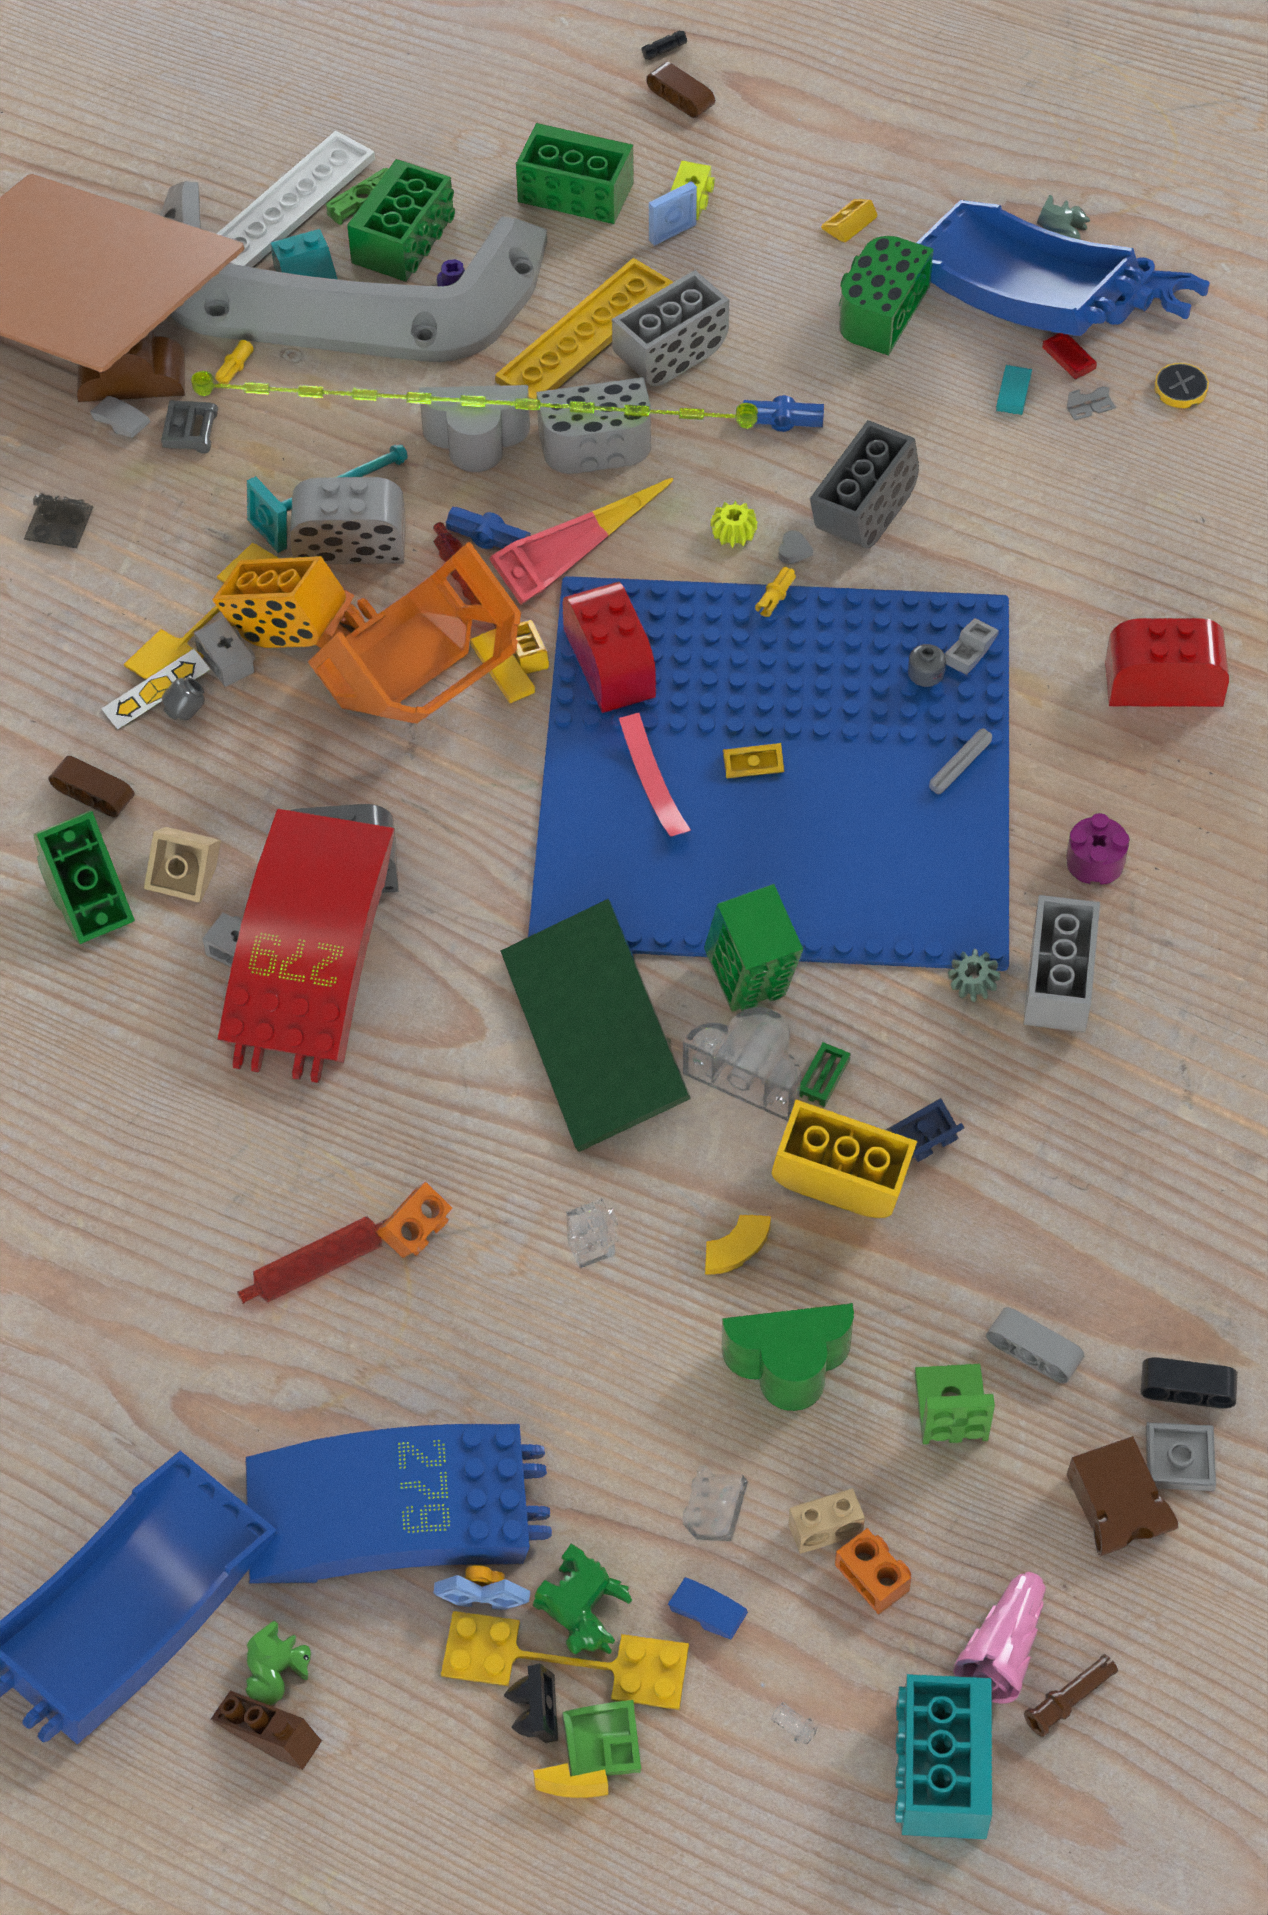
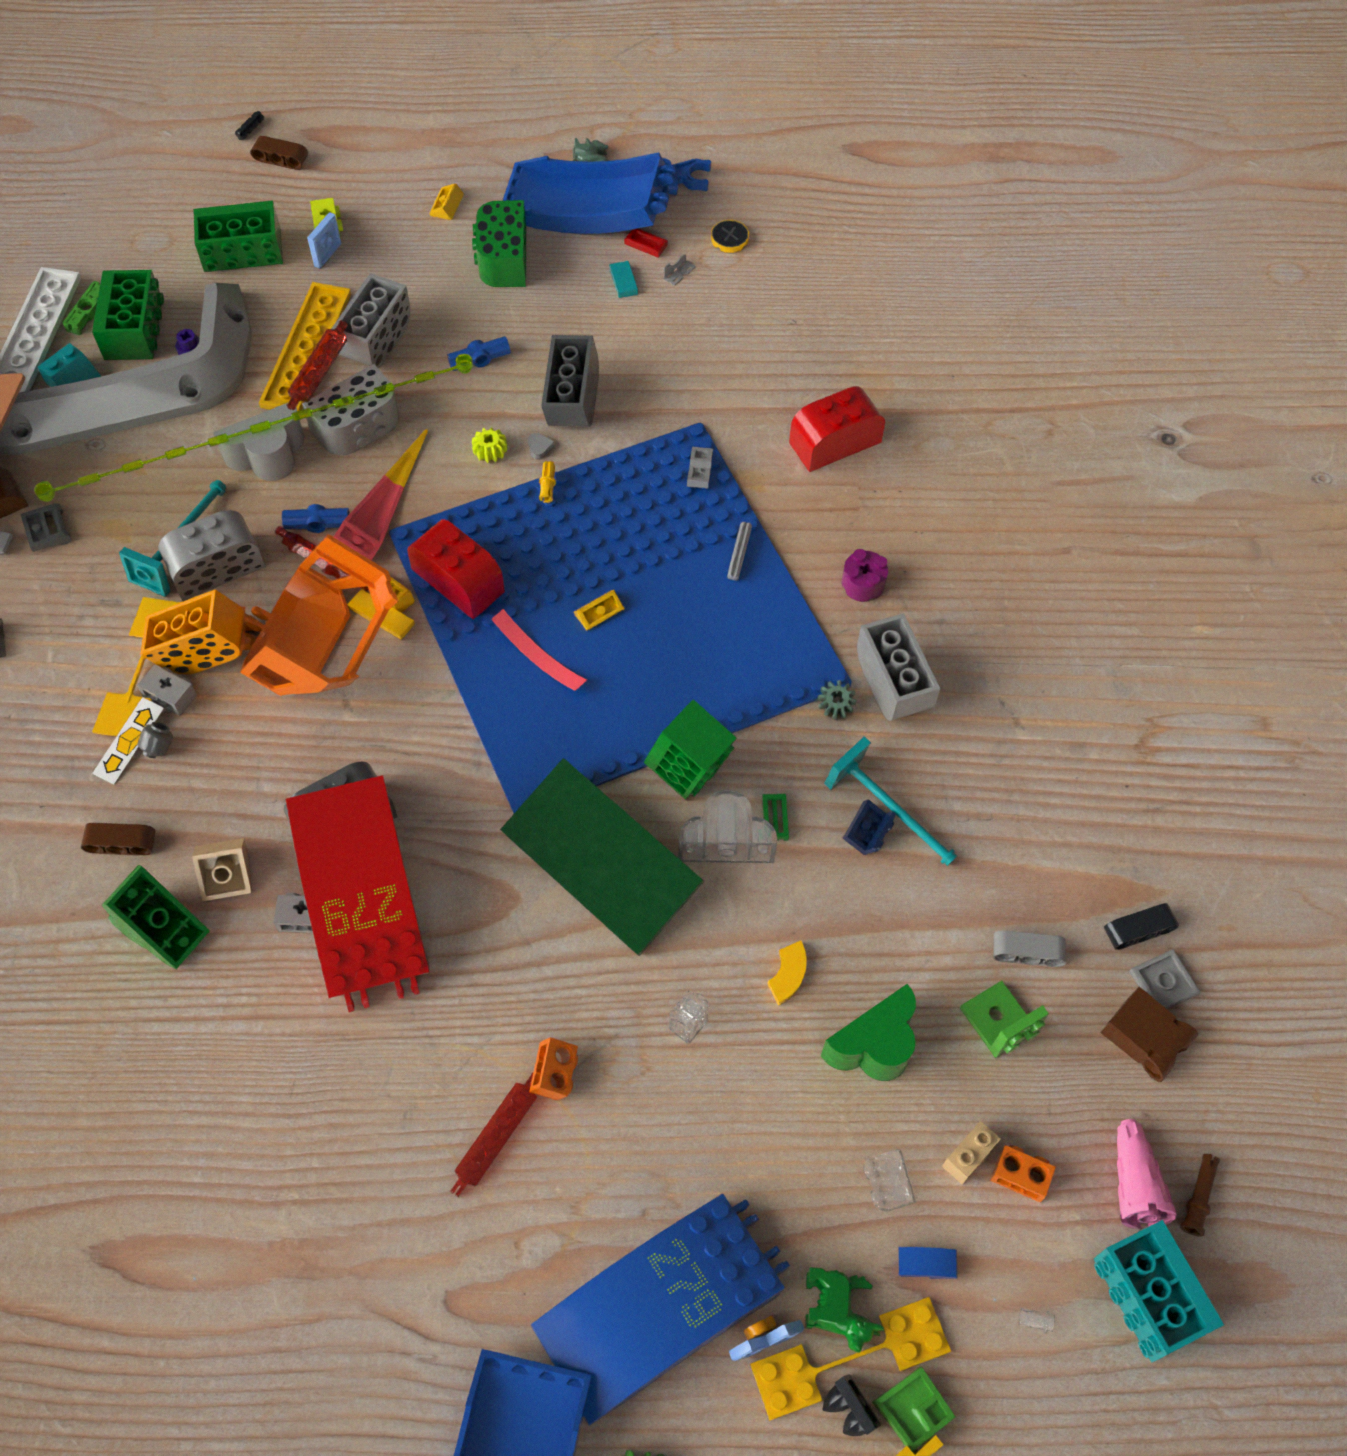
camera: 30 degrees left, 5 degrees up
(234, 362) = (55, 465): yellow axle -> none
(573, 354) = (317, 365): none -> clear red plate
(842, 1161) = (836, 878): yellow brick -> none
(926, 665) = (681, 492): dark grey head -> none
(941, 1049) = (850, 765): none -> teal tile

